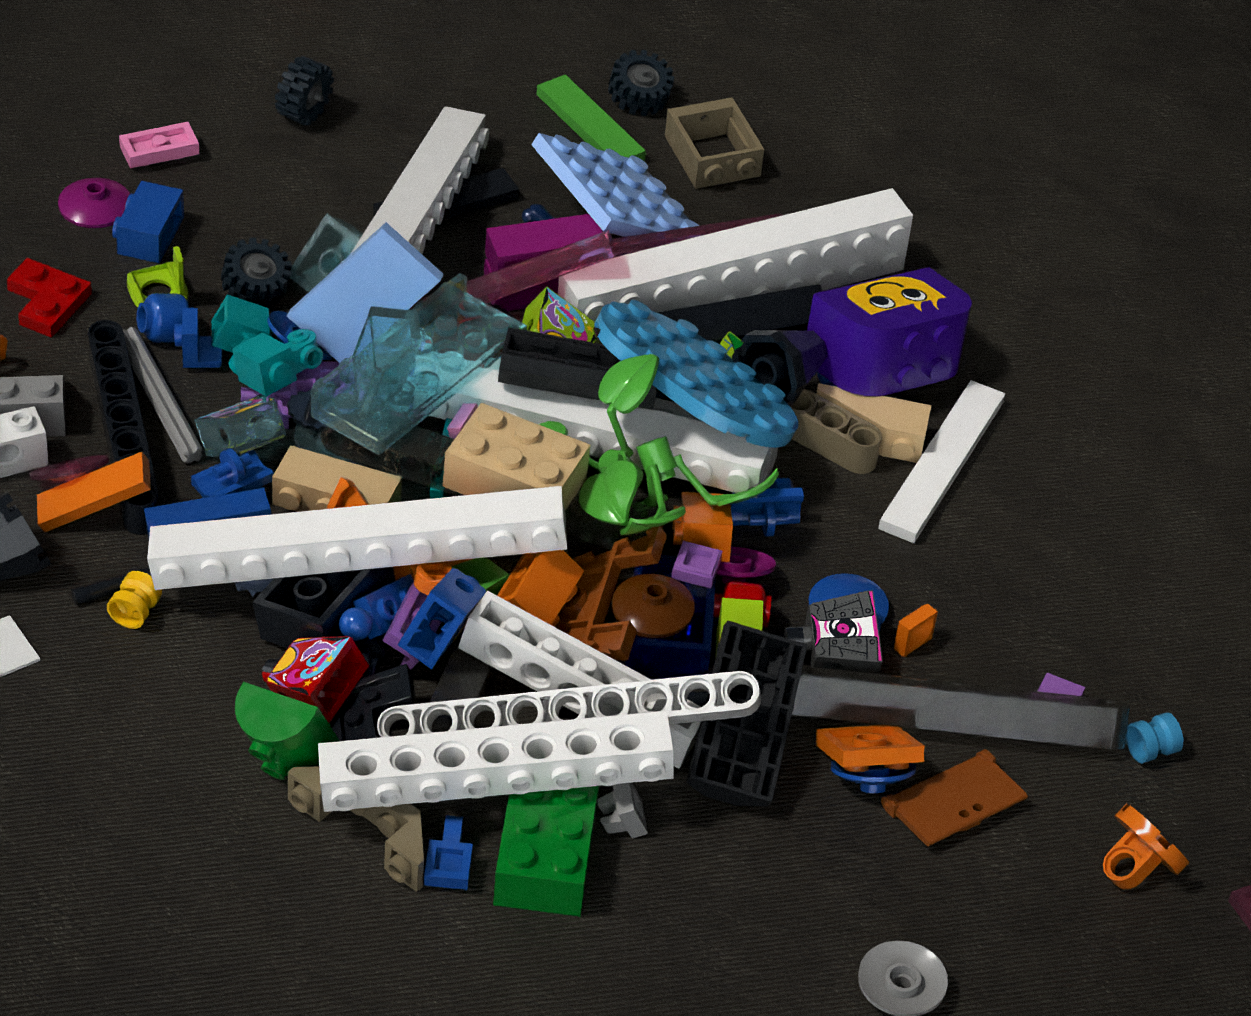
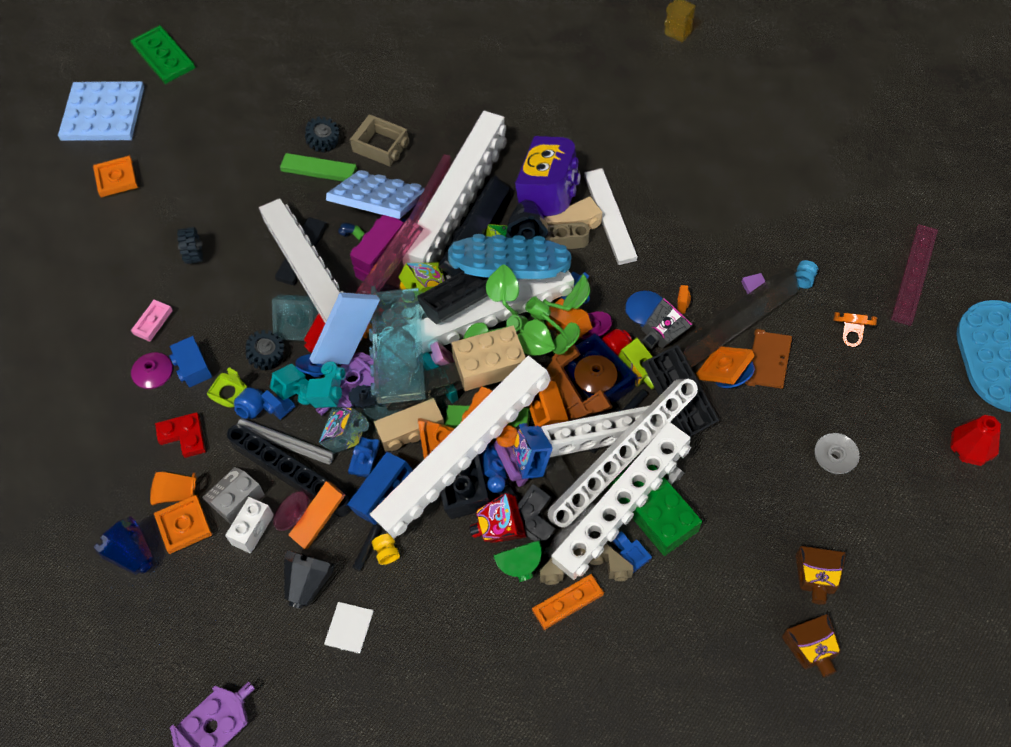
camera: 35 degrees left, 15 degrees up
(294, 845) = (567, 601): none -> orange tile
(696, 564) = (592, 341): medium lavender tile -> none

